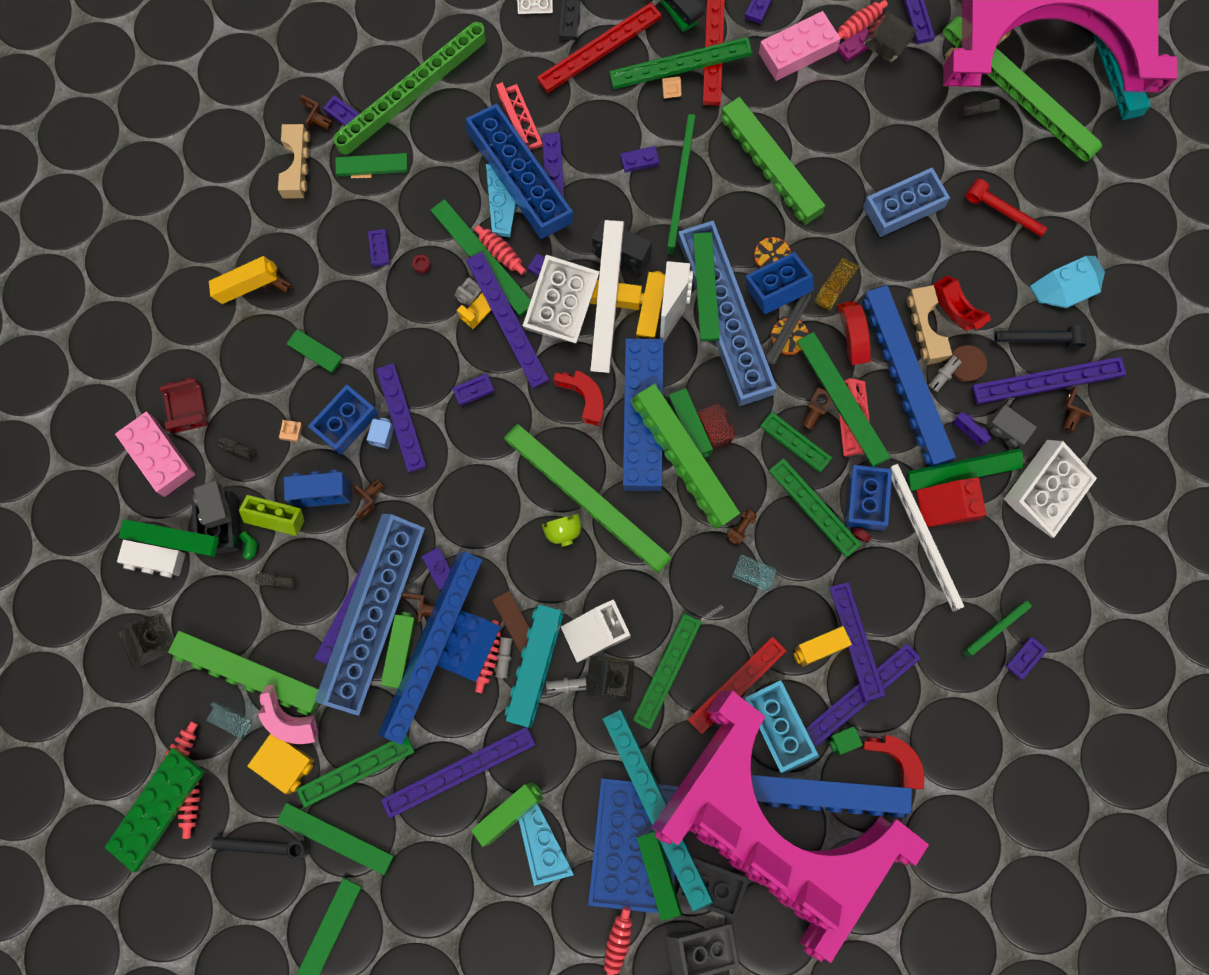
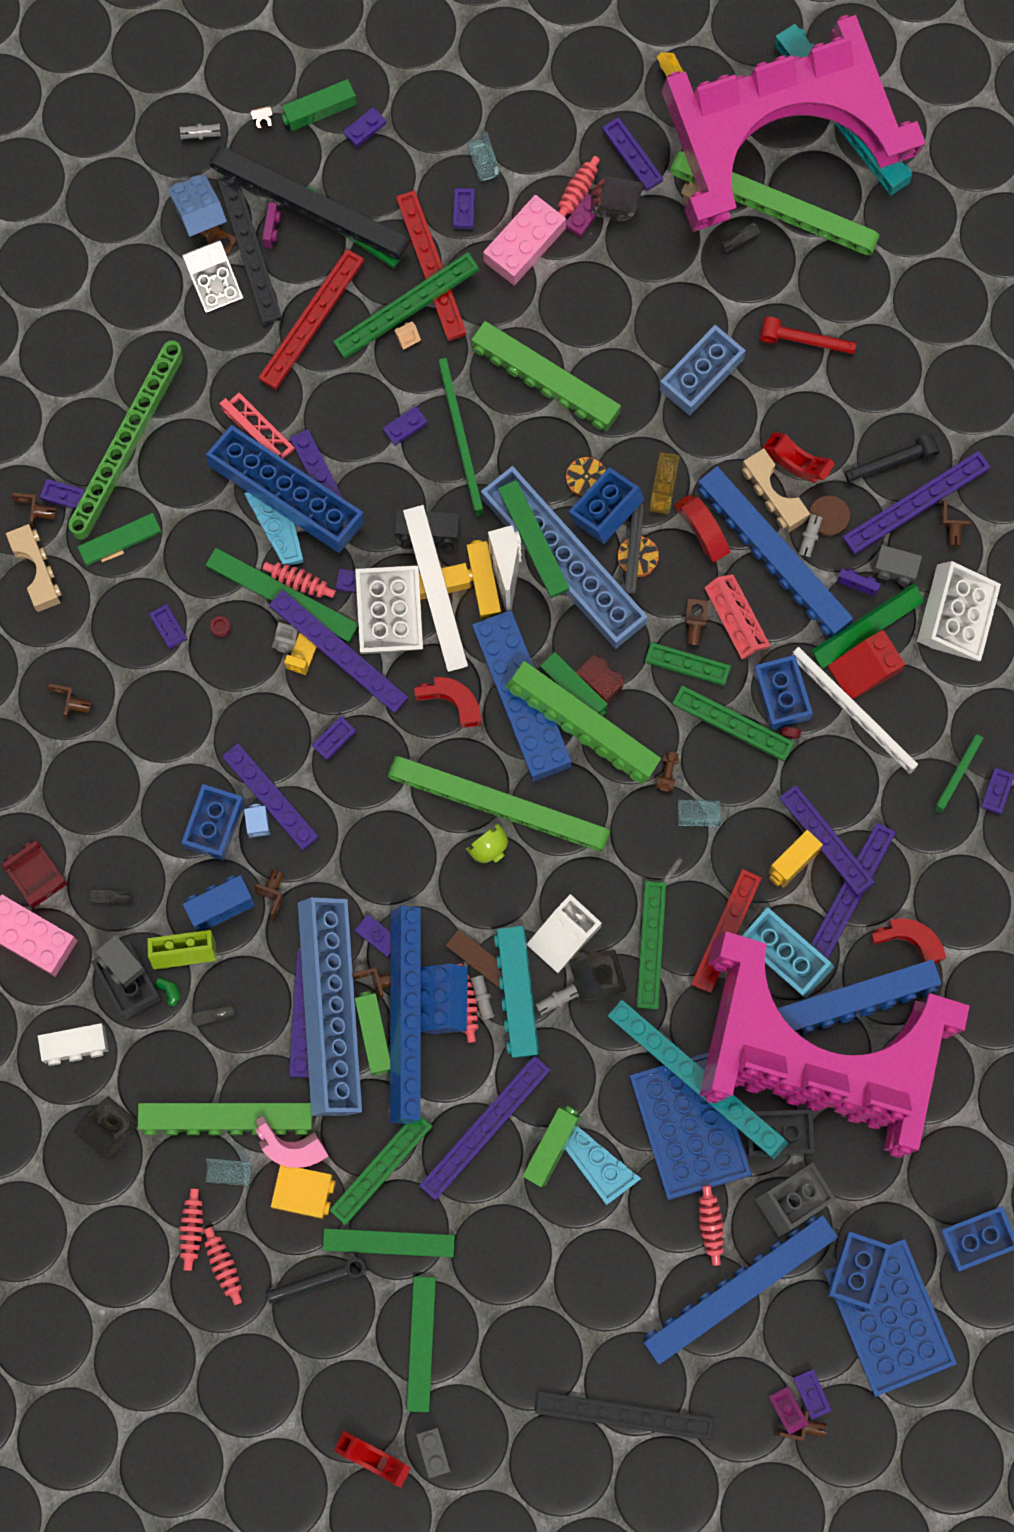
camera: 25 degrees left, 0 degrees up
(154, 809) = (195, 1287): green plate -> none
(169, 537) = (85, 1014): green tile -> none
(243, 280) = (41, 717): yellow brick -> none
(290, 431) = (159, 856): light nougat tile -> none
(314, 351) = (147, 763): green tile -> none
(659, 876) = (725, 1142): green tile -> none
(843, 400) = (718, 602): green tile -> none
(845, 741) = (853, 942): green brick -> none
(1070, 283) = (901, 392): medium azure wedge -> none

